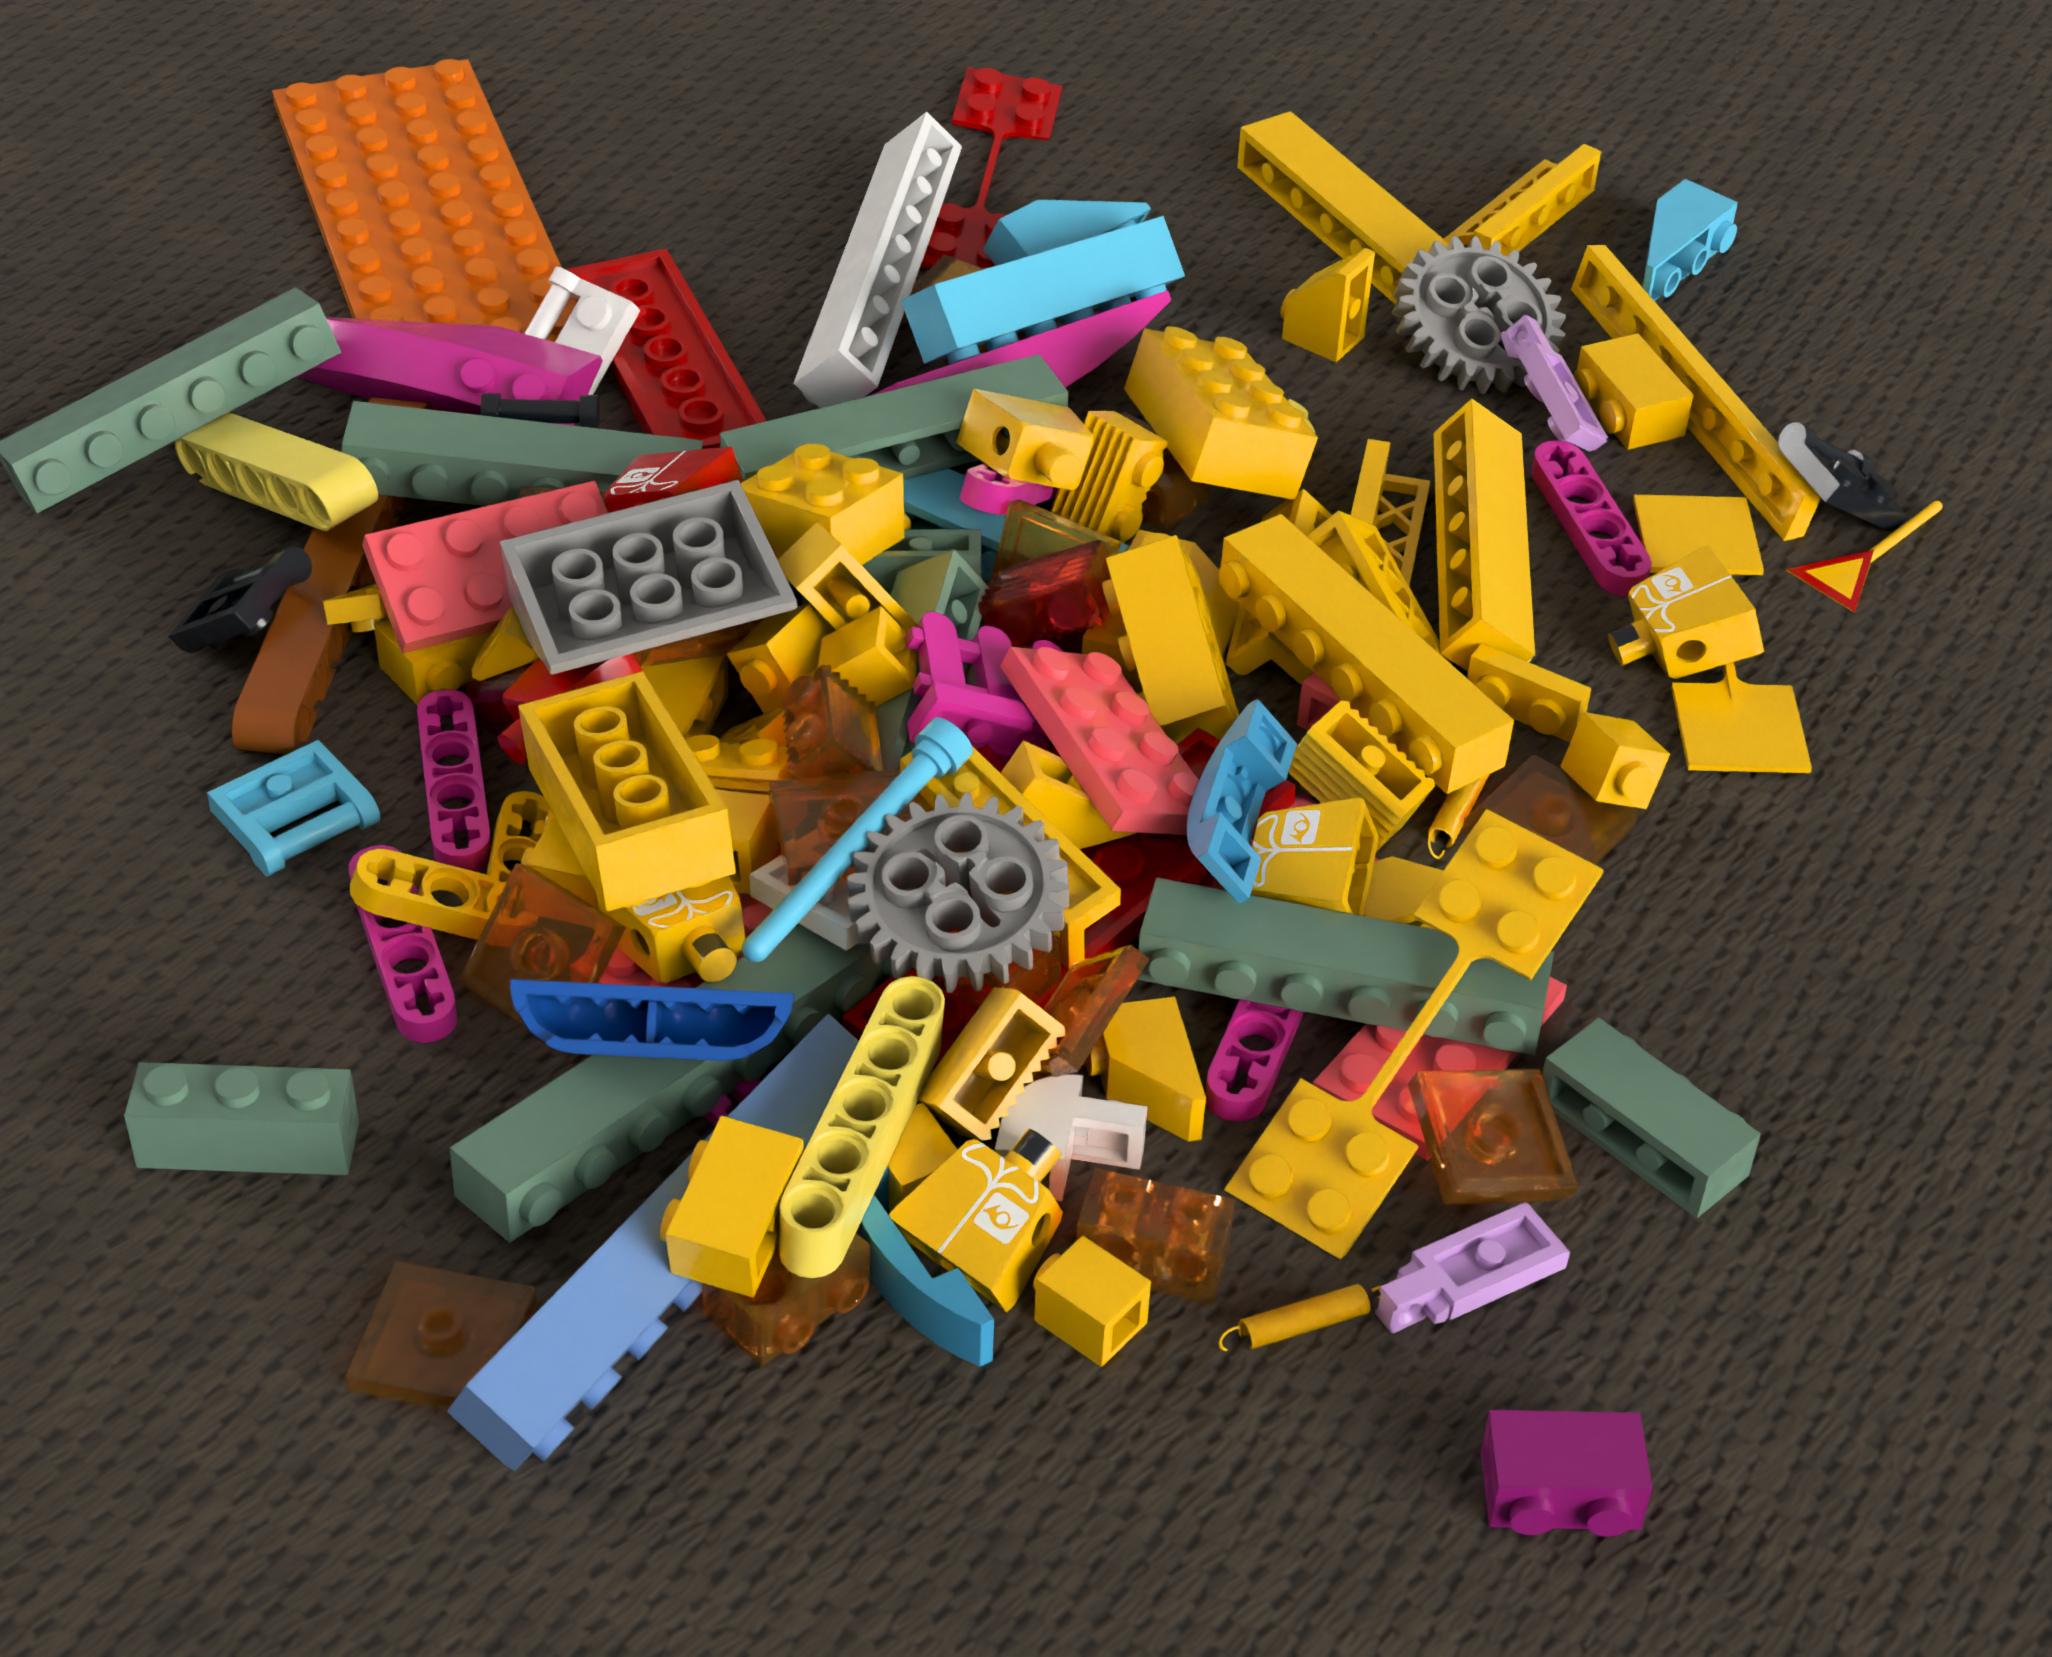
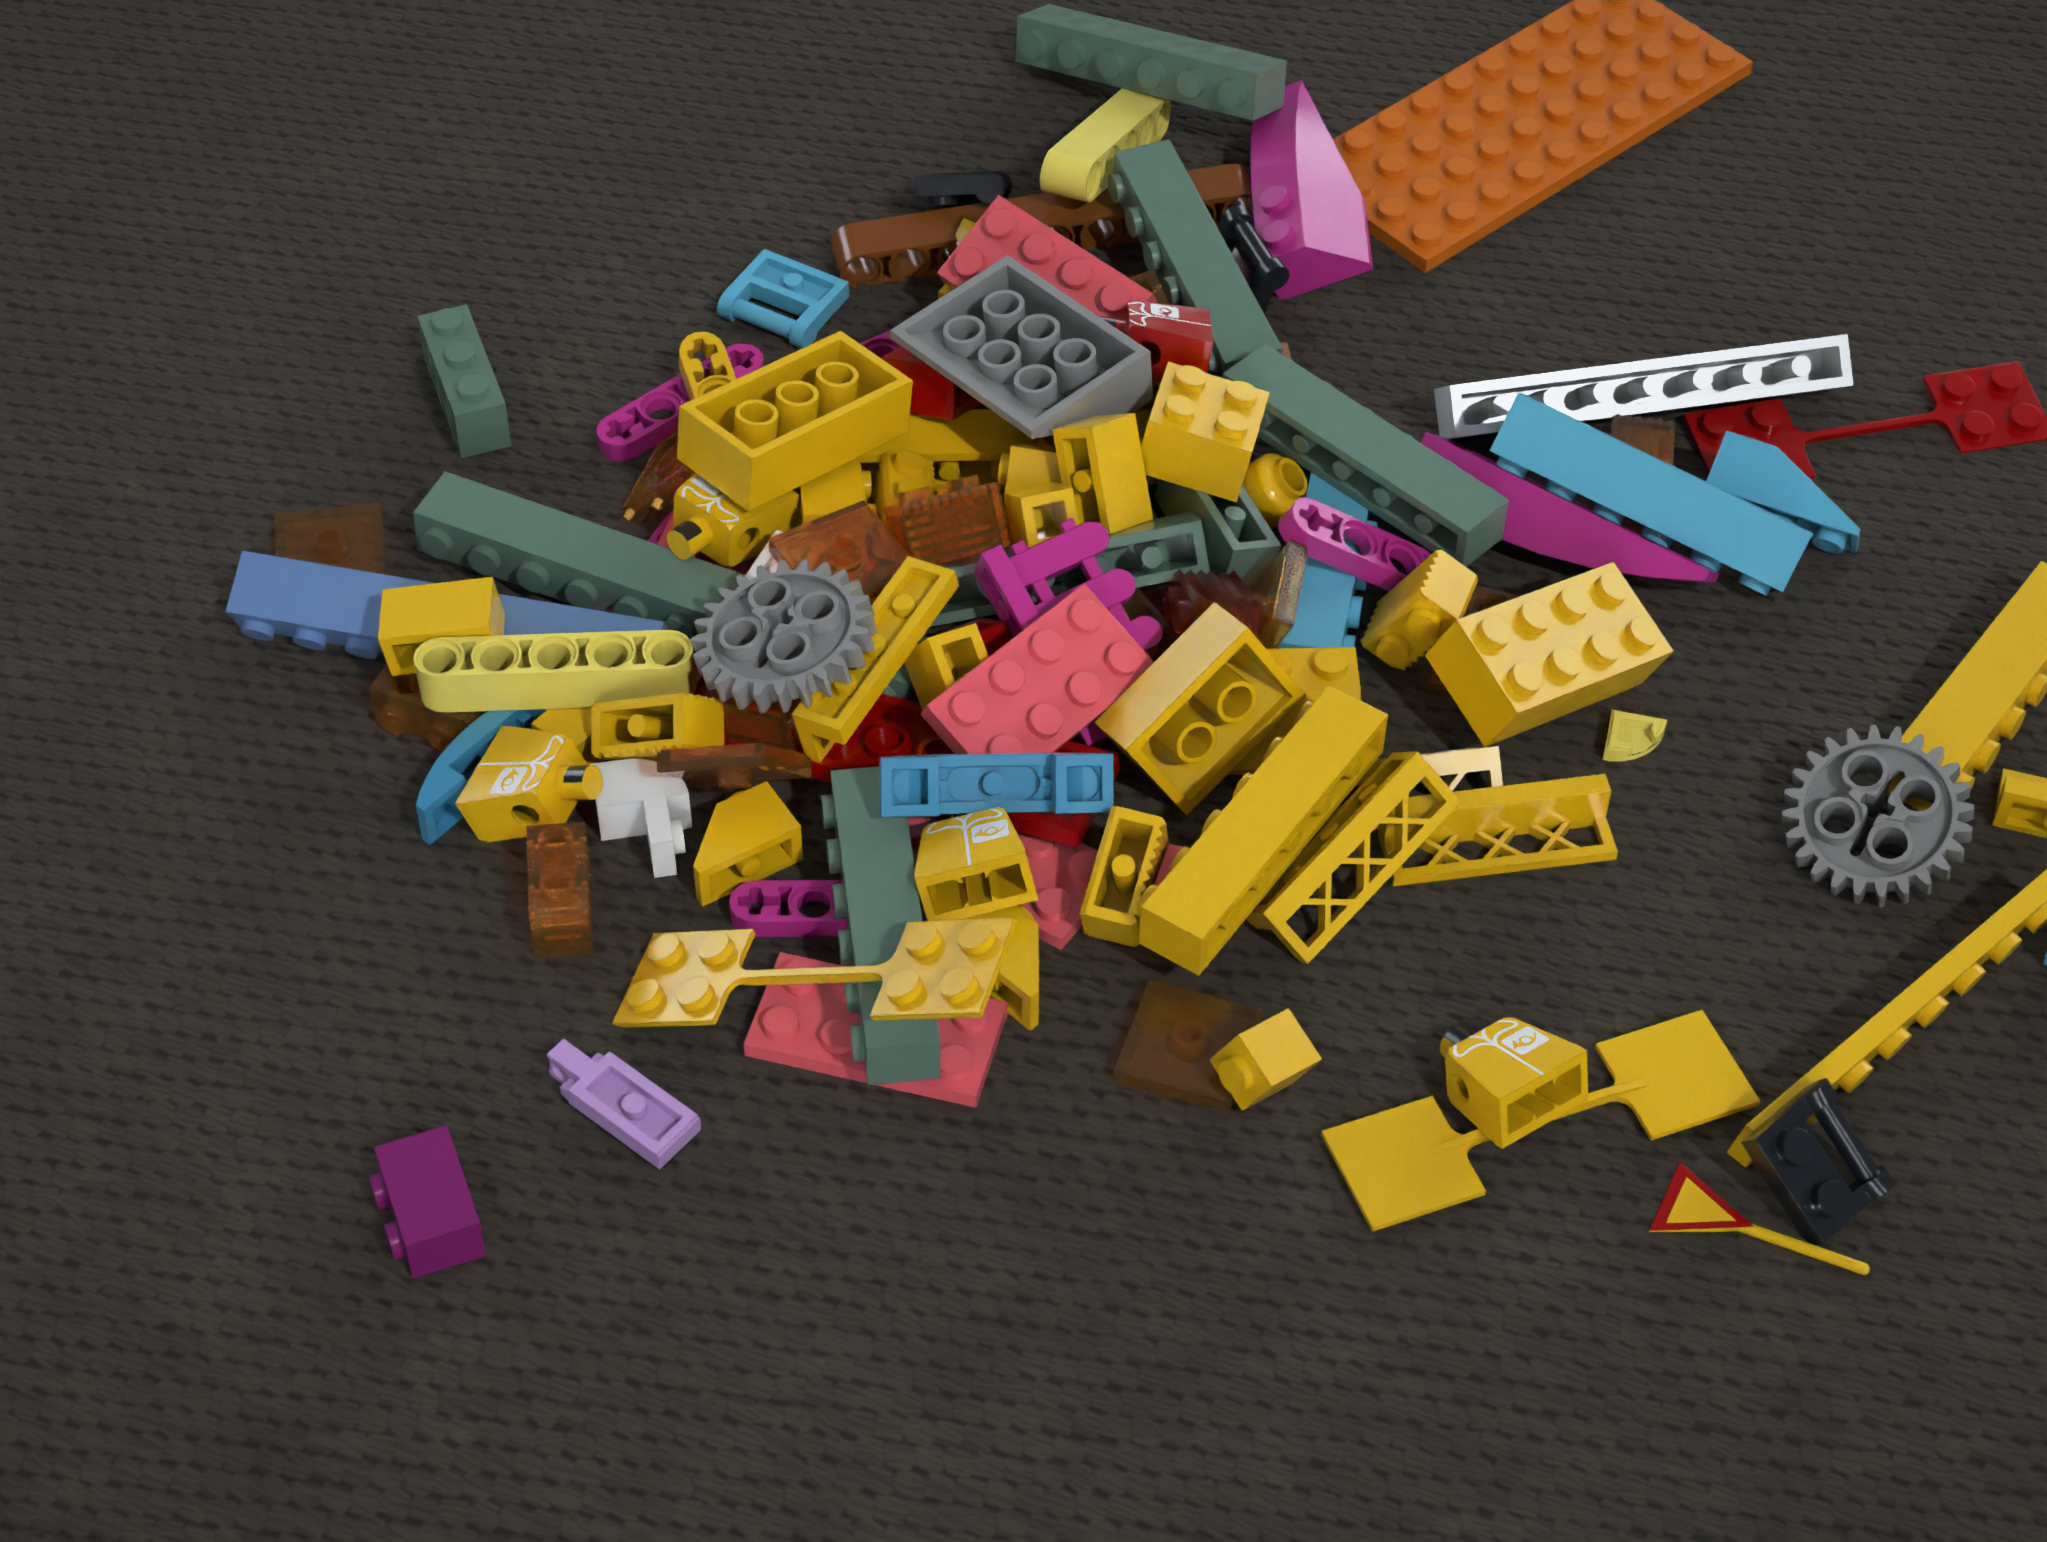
camera: 70 degrees right, 5 degrees up
(595, 324) = (1406, 241): white plate -> none
(650, 1019) = (596, 519): blue brick -> none
(671, 356) = (1430, 311): red plate -> none
(938, 751) = (906, 566): medium azure piece -> none
(1045, 439) = (1389, 530): yellow torso -> none
(1091, 1300) = (486, 873): yellow brick -> none
(1304, 1316) = (535, 1008): yellow piece -> none
(1330, 307) = (1803, 709): yellow slope -> none
(1453, 811) = (1210, 979): yellow piece -> none
(1482, 537) = (1524, 898): yellow brick -> none
(1492, 1136) = (763, 1077): clear orange plate -> none
(1529, 692) = (1334, 963): yellow plate -> none
(1554, 385) = (1802, 901): lavender hinge -> none
(1598, 516) = (1650, 989): dark pink beam -> none
(1633, 391) = (1856, 968): yellow brick -> none
(1649, 1117) = (837, 1182): sand green brick -> none

